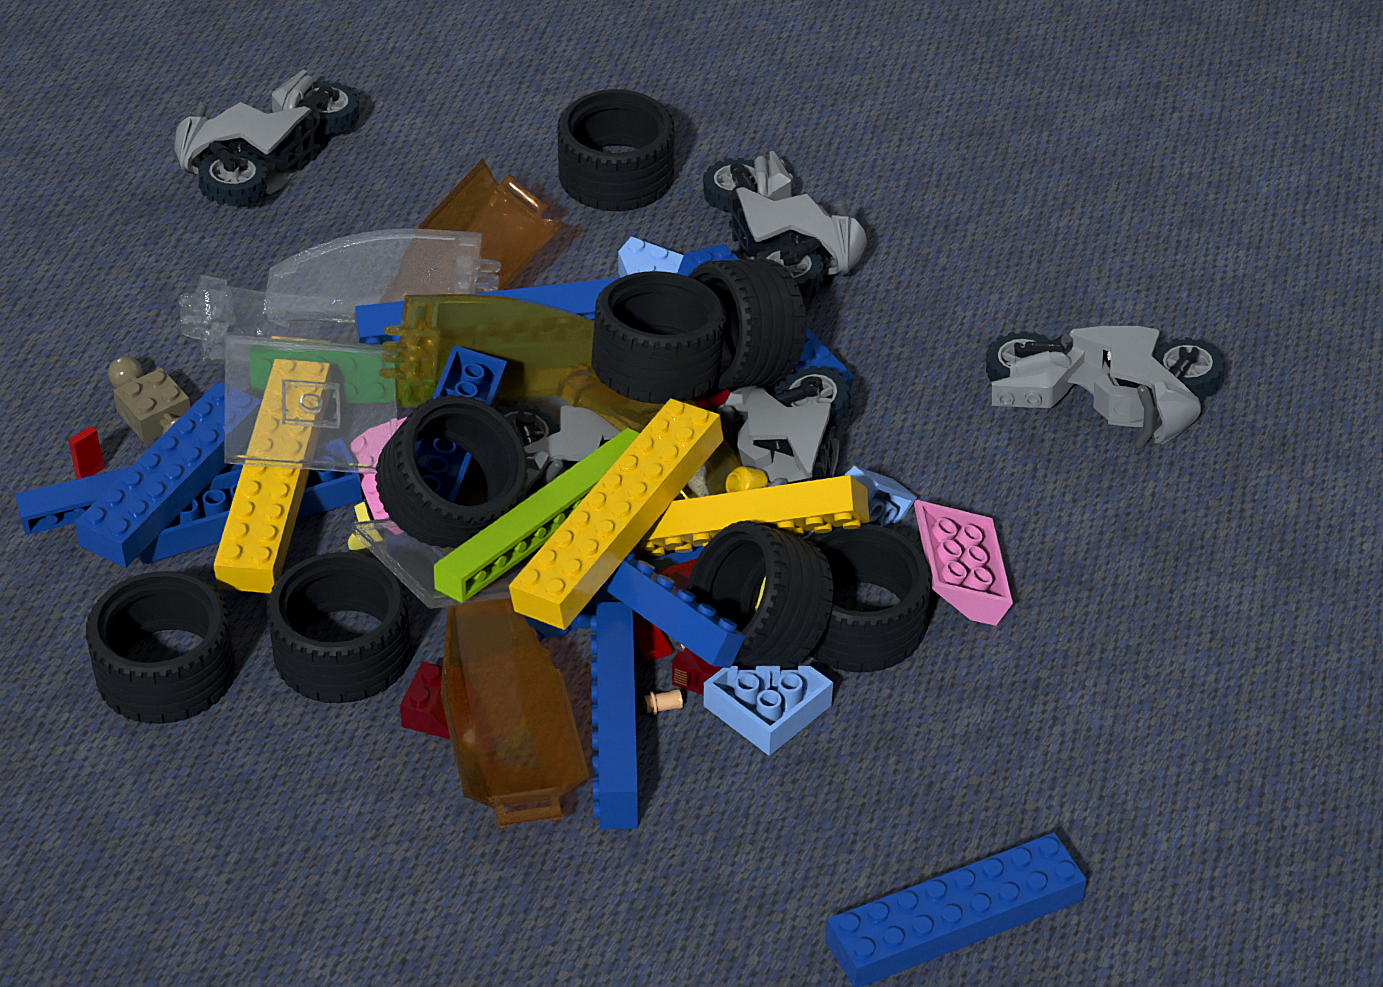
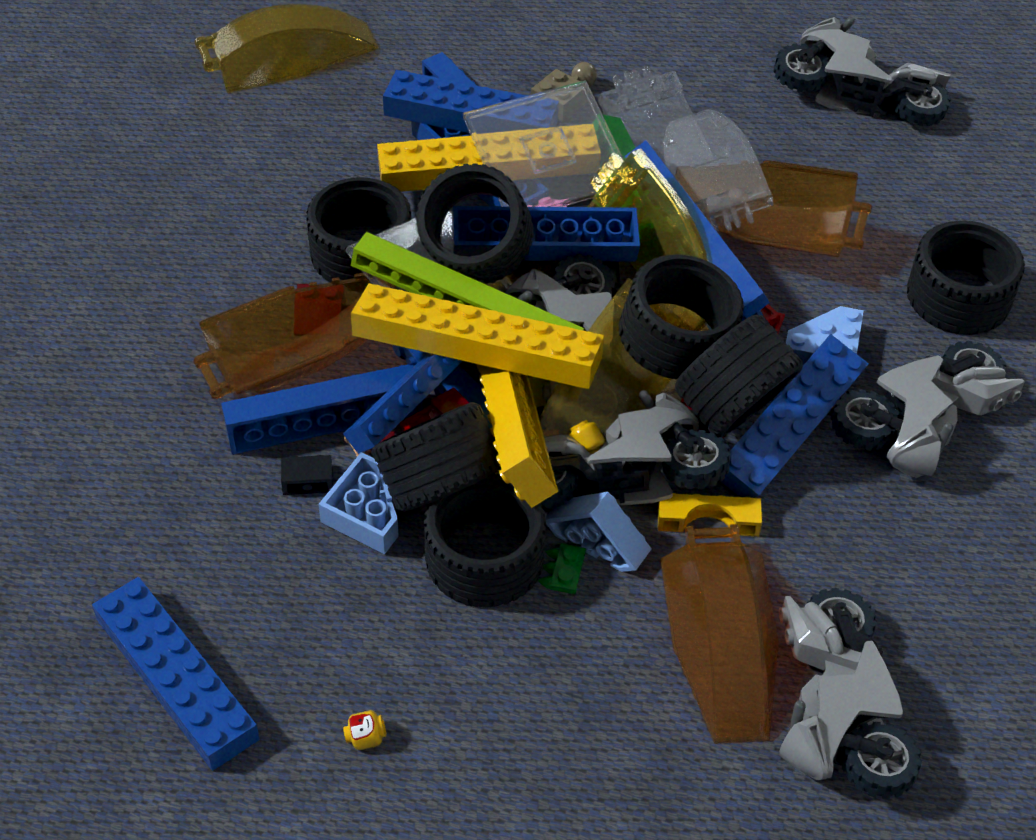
camera: 75 degrees right, 5 degrees up
(86, 453) = (491, 72): red tile -> none
(169, 688) = (308, 123): black tyre -> none
(702, 752) = (306, 474): none -> black brick
(867, 406) = (681, 509): none -> yellow arch
(964, 561) = (553, 604): bright pink slope -> none
(1002, 448) = (724, 632): none -> clear orange windscreen
(1066, 752) = (365, 730): none -> head

